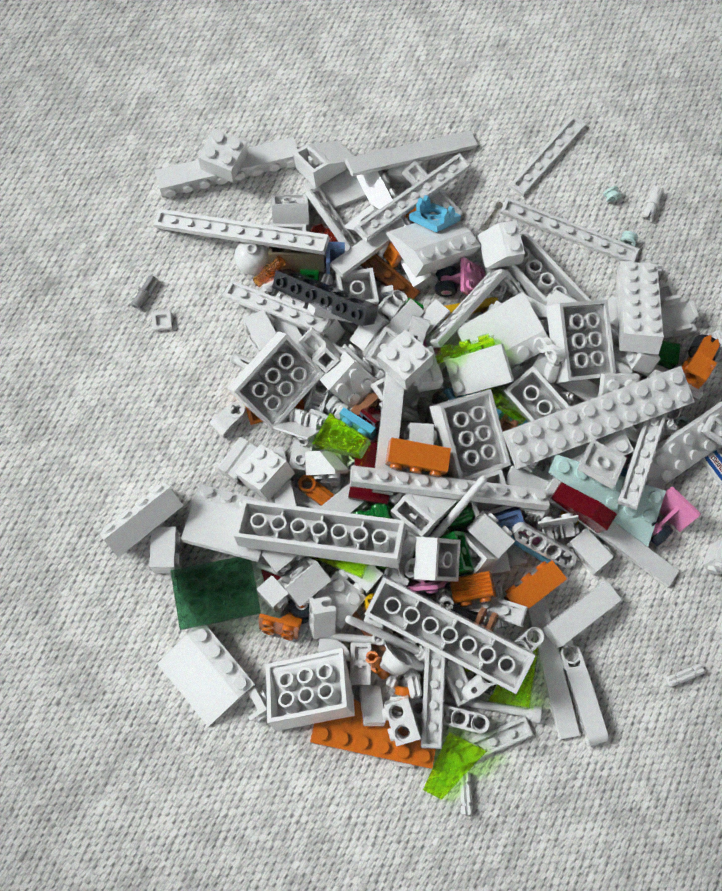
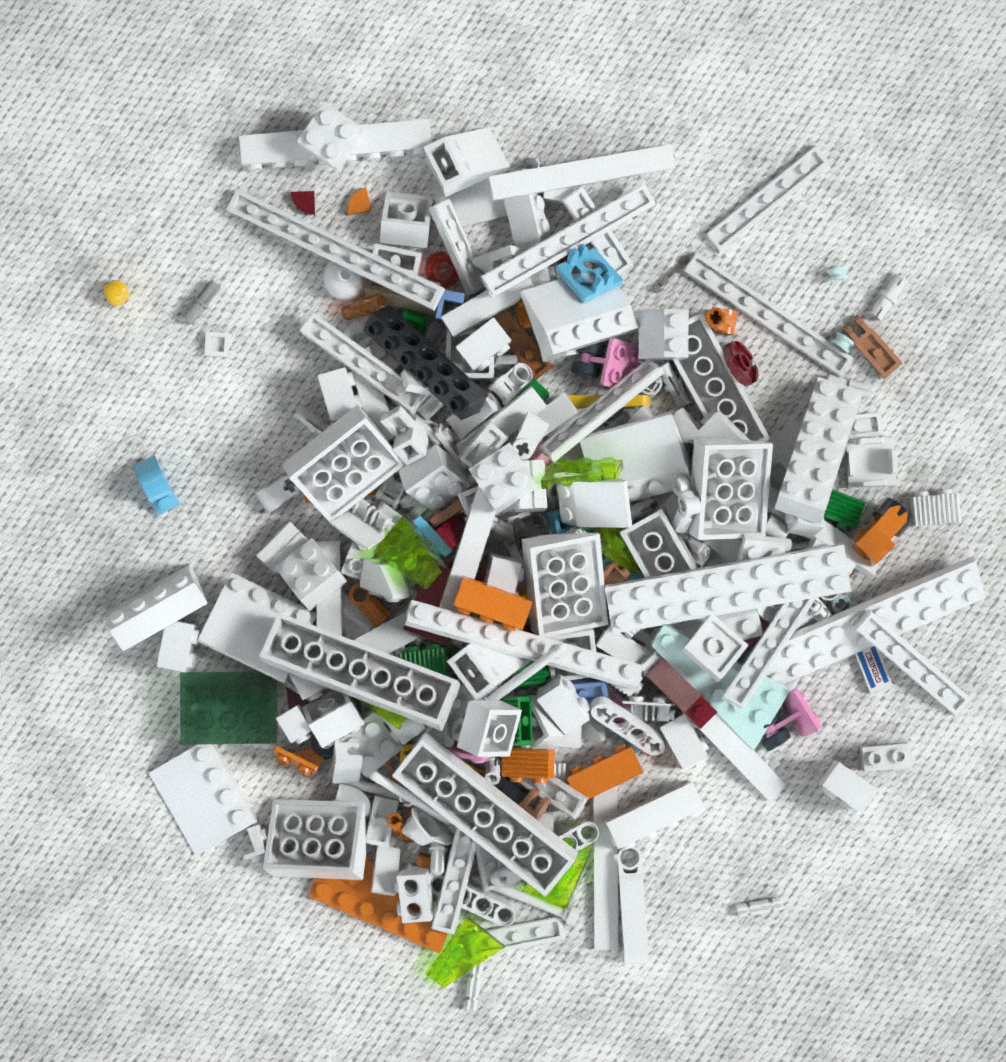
camera: 15 degrees right, 15 degrees up
(77, 295) = (116, 292): none -> yellow piece
(130, 430) = (156, 485): none -> medium azure brick
(211, 210) = (304, 201): none -> dark red tile
(252, 205) = (359, 202): none -> orange tile
(367, 275) = (483, 345): none -> white brick
(539, 234) = (721, 320): none -> orange piece
(561, 262) = (739, 363): none -> dark red tile
(652, 239) = (873, 348): none -> nougat hinge

